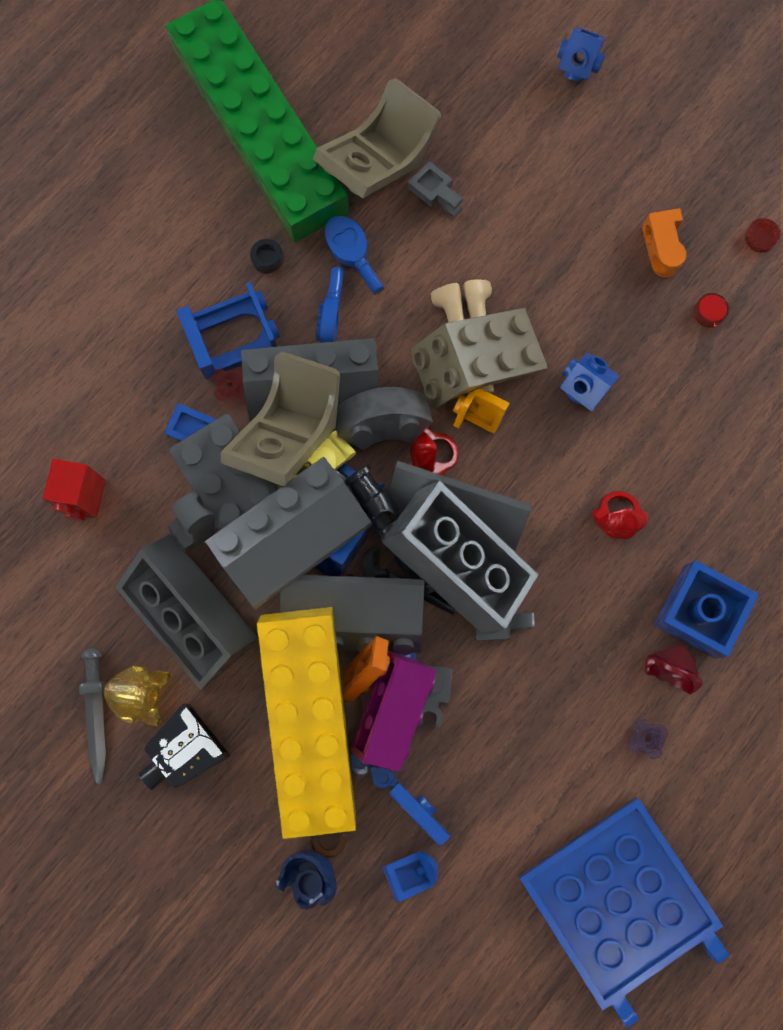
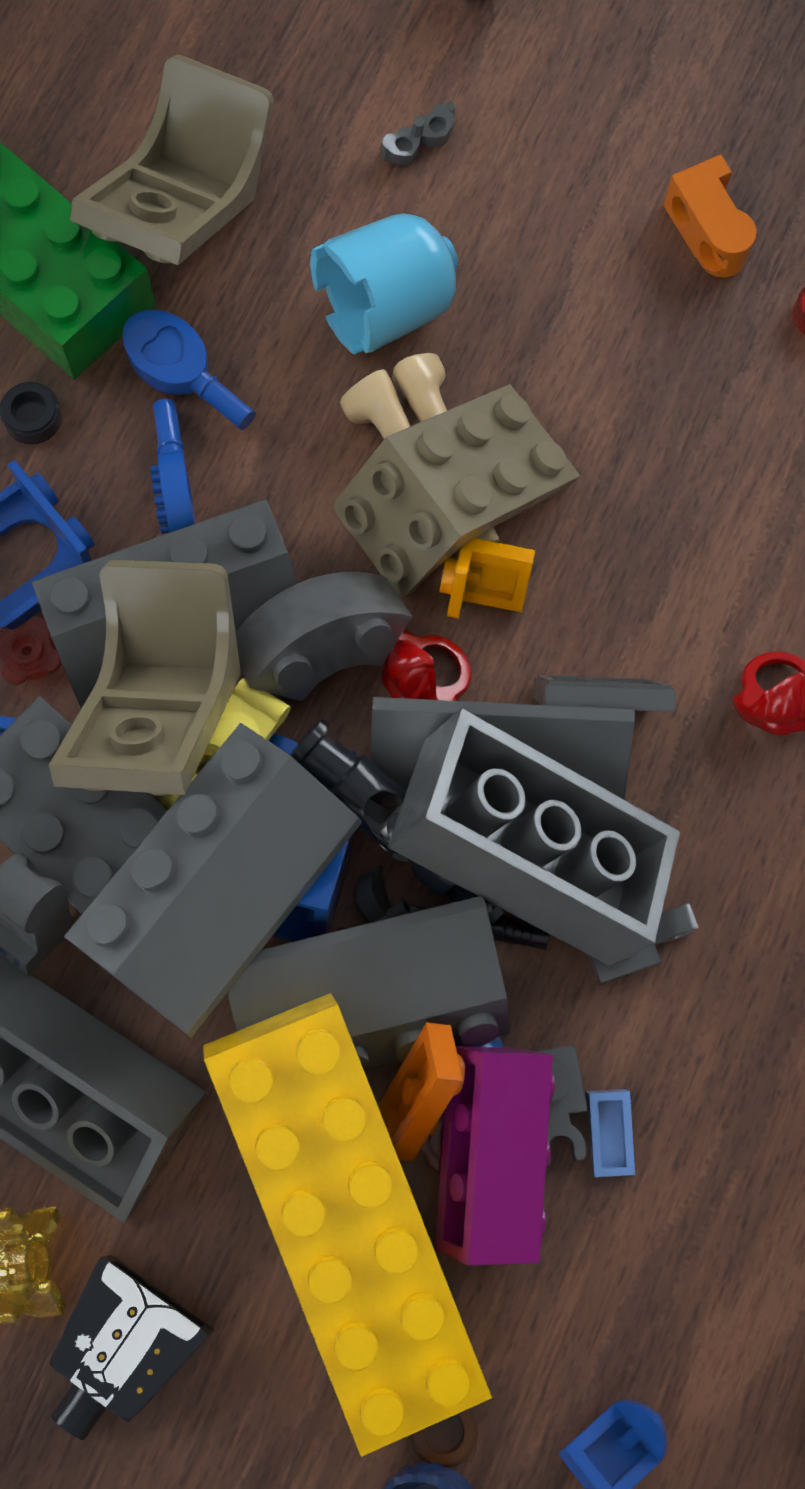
camera: 20 degrees left, 5 degrees down
(380, 776) = (502, 1283): blue piece -> none
(421, 812) = (599, 1326): blue plate -> none
(434, 185) = (290, 222): dark grey plate -> none
(458, 717) = (610, 1132): none -> medium blue piece
(474, 232) = (385, 280): none -> medium azure cylinder
(522, 490) = (605, 692): none -> dark grey tile
(523, 151) = (427, 130): none -> dark grey piece
(588, 380) = (657, 477): blue brick -> none

